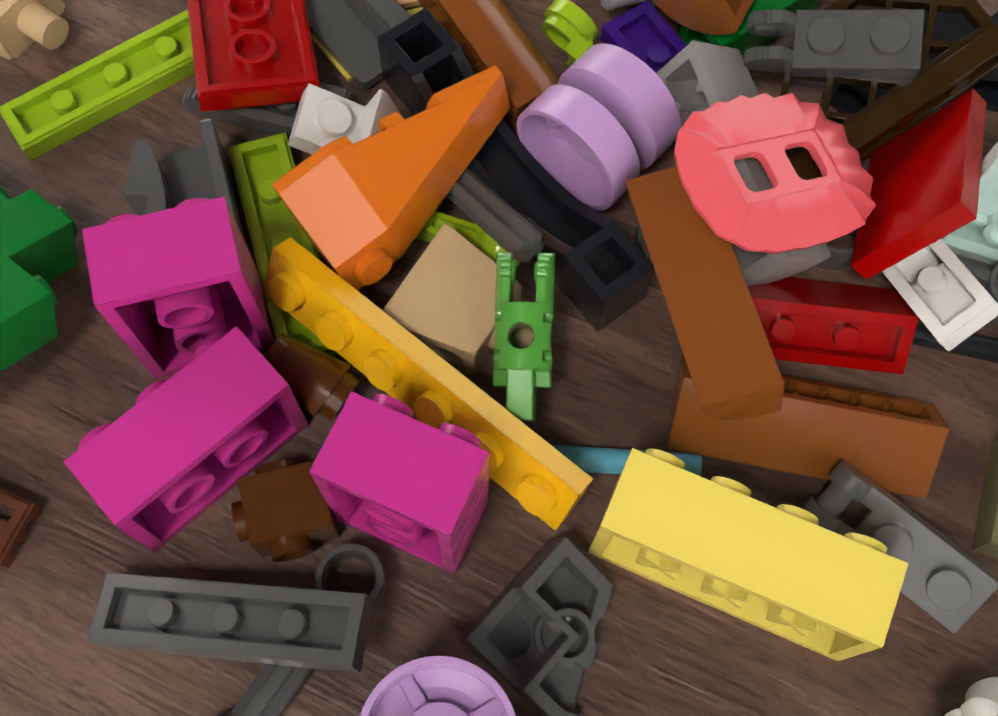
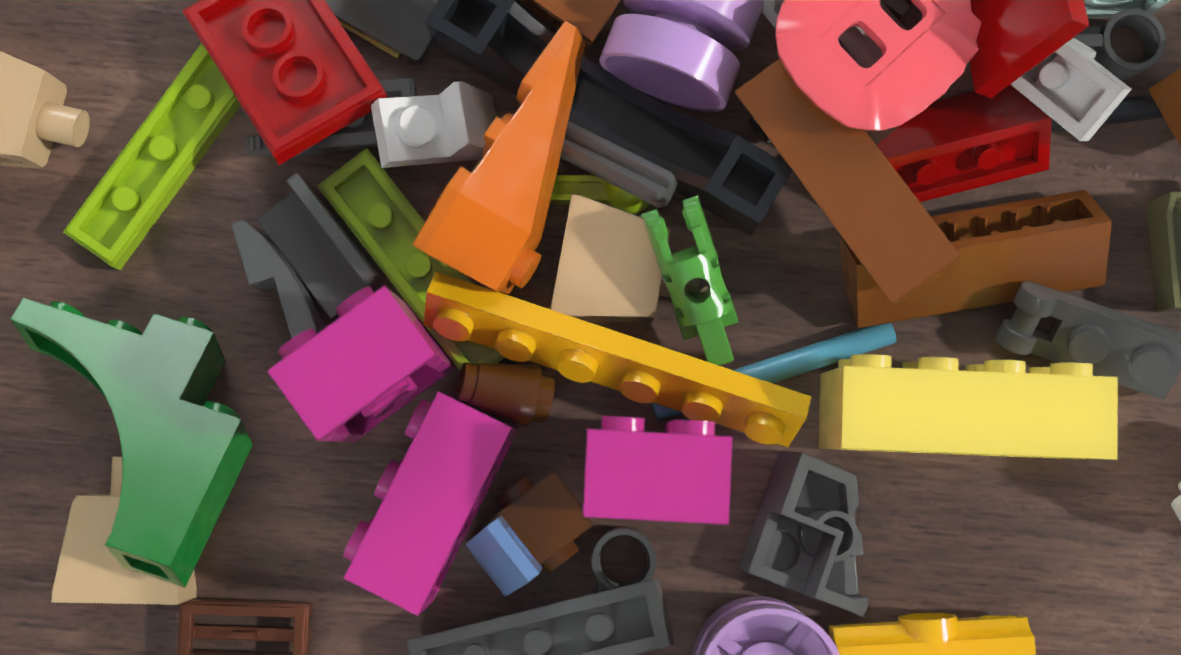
camera: 20 degrees left, 15 degrees up
(232, 517) = (503, 556): none -> medium blue slope

